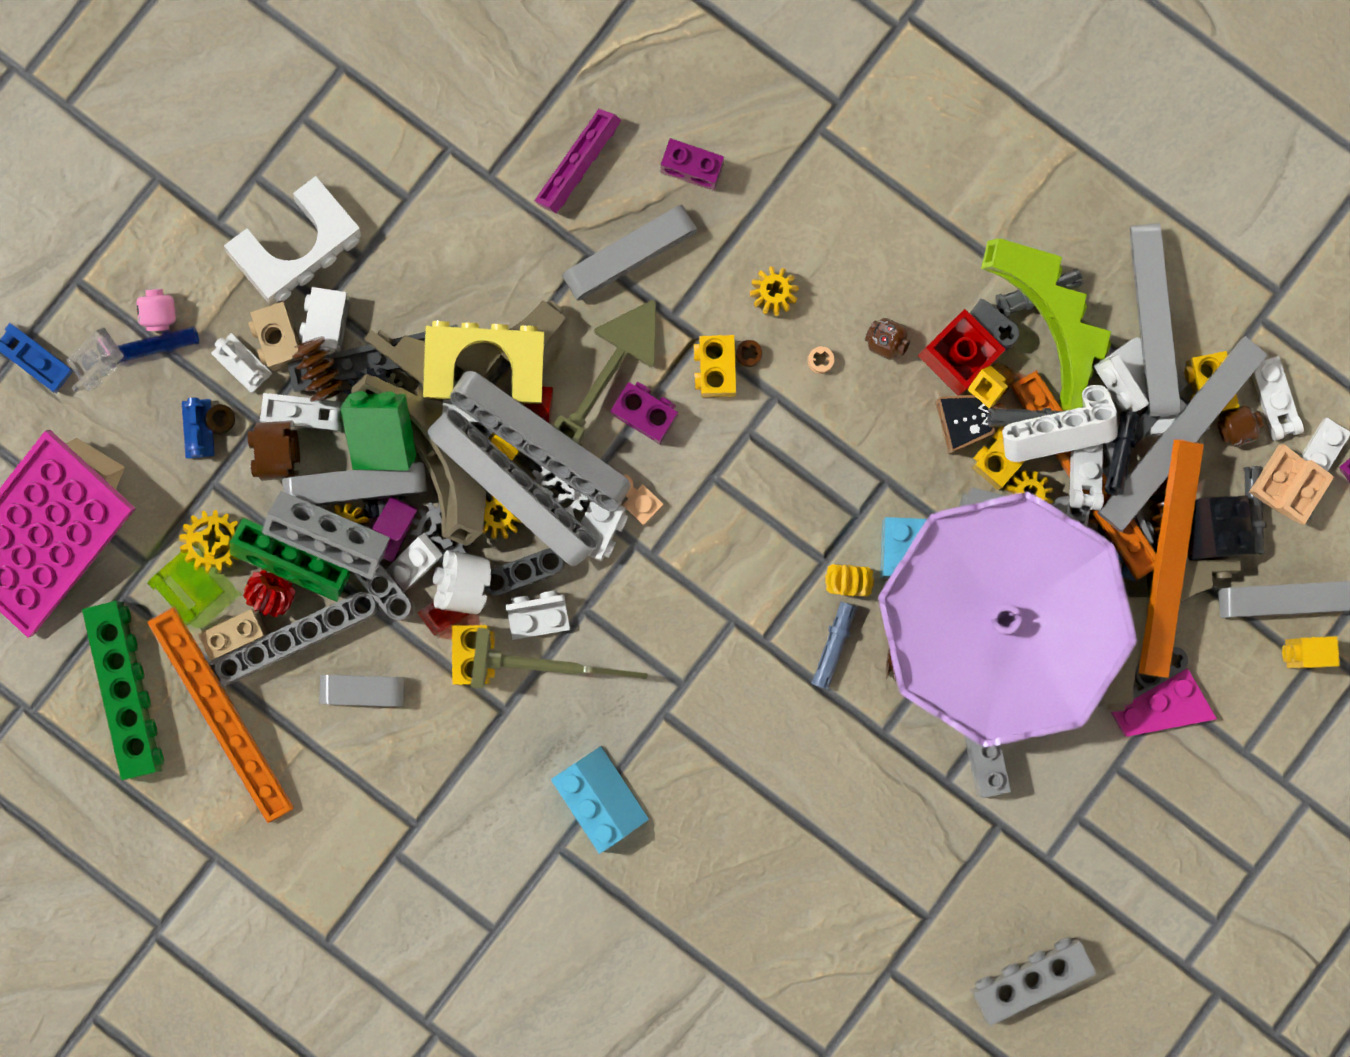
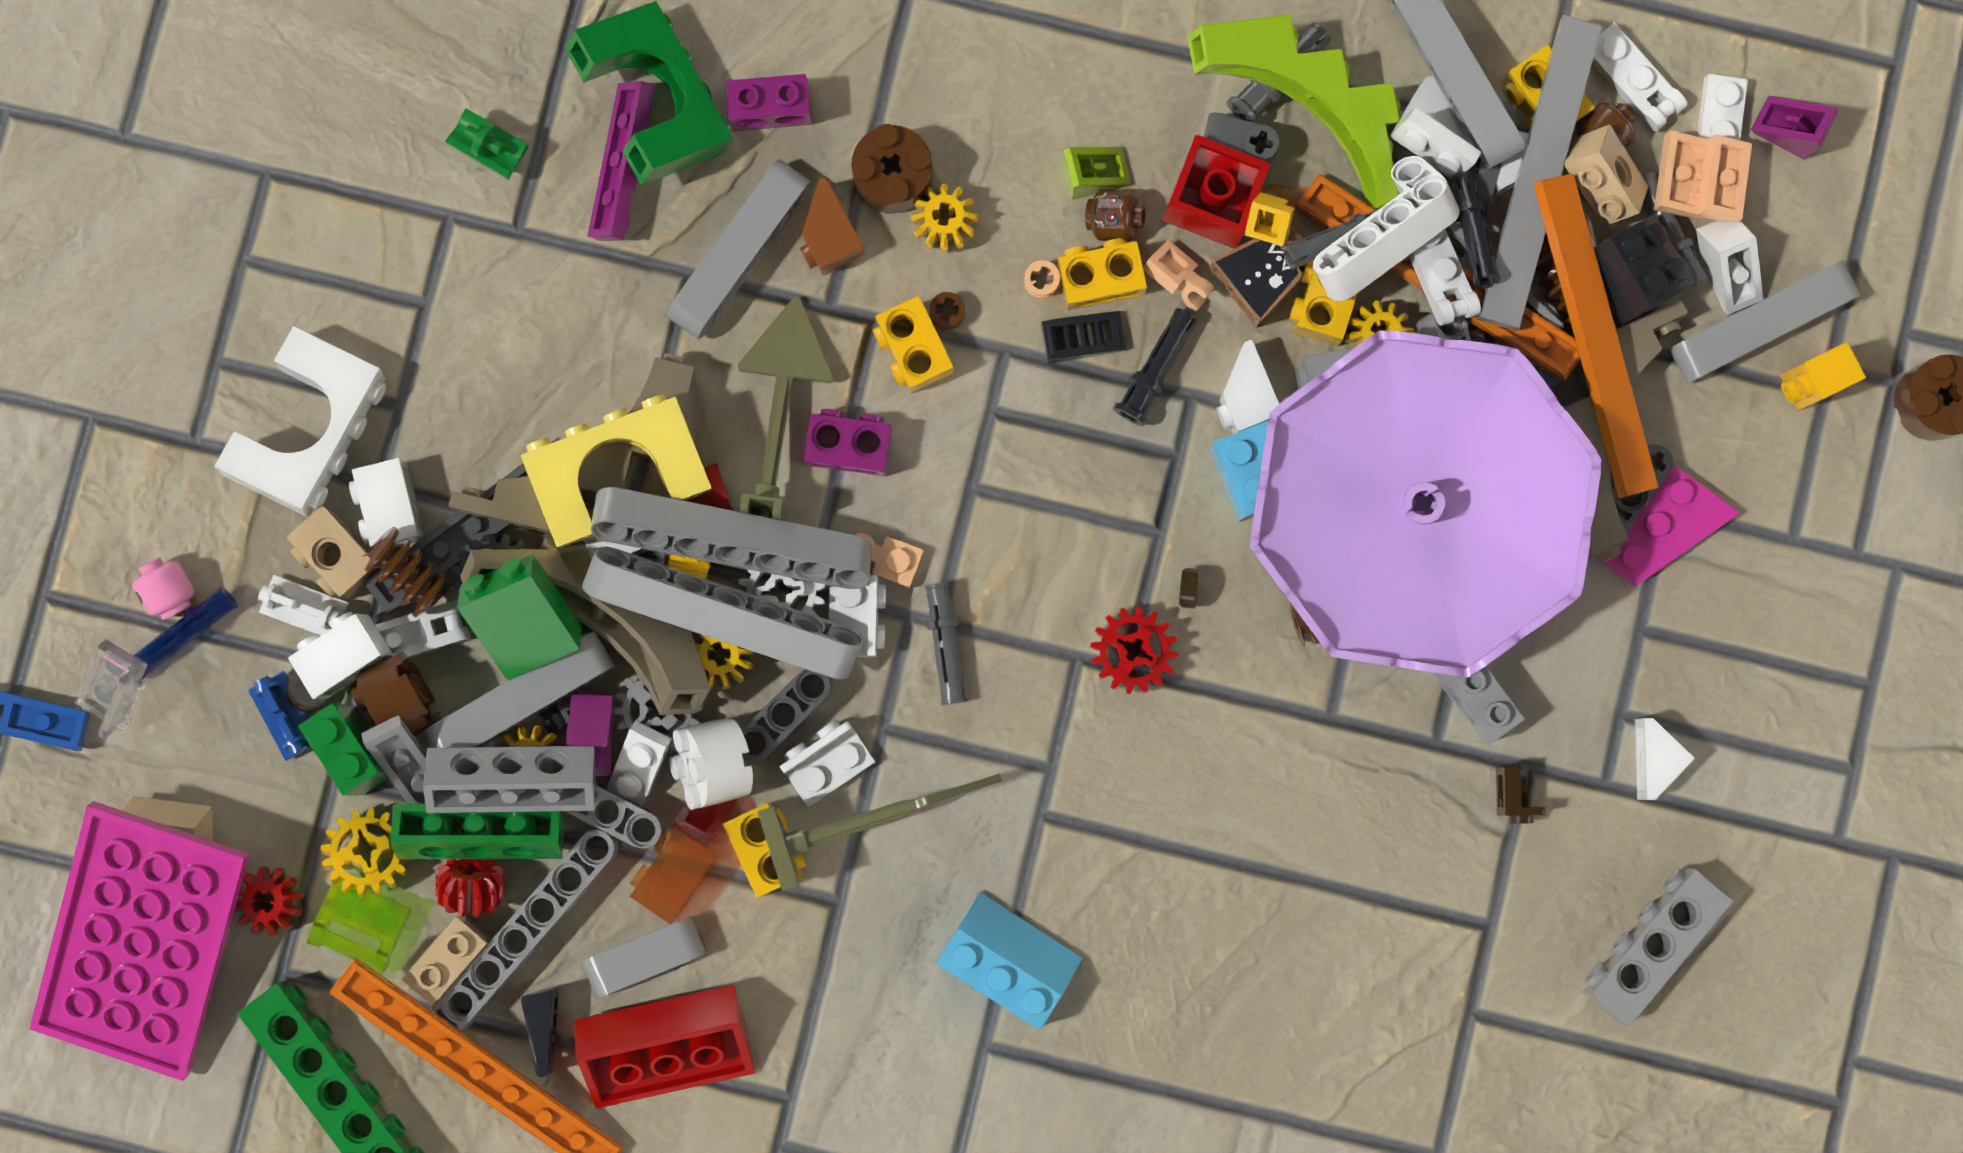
camera: 25 degrees left, 0 degrees up
(131, 556) = (283, 905): none -> red gear
(229, 469) = (340, 748): none -> green brick
(251, 404) = (337, 657): none -> white brick
(260, 488) = (399, 757): none -> light grey plate
(276, 702) = (541, 1022): none -> black slope
(348, 754) = (663, 1046): none -> red slope
(404, 645) = (673, 875): none -> clear orange brick
(494, 111) = (487, 144): none -> green hips
(630, 90) = (647, 42): none -> green arch
(653, 562) = (945, 642): none -> dark grey pin
(693, 268) = (828, 232): none -> dark orange slope
(754, 227) = (891, 146): none -> reddish brown brick
(758, 642) = (1142, 634): none -> red gear
(827, 607) = (1189, 588): none -> dark brown tile
(834, 399) = (1055, 355): none -> black slope
(836, 639) = (1219, 632): sand blue pin -> none
(849, 580) = (1202, 542): yellow gear -> none
(860, 381) = (1105, 285): none -> yellow brick
(861, 458) = (1148, 382): none -> black pin
(888, 302) = (1094, 169): none -> lime slope
(912, 393) = (1176, 271): none -> light nougat plate
(923, 495) = (1248, 392): none -> white slope
(981, 835) = (1510, 790): none -> dark brown bracket
(1089, 857) = (1658, 758): none -> white slope
(1226, 455) = (1606, 175): none -> tan brick
(1284, 550) = (1731, 263): none -> white slope

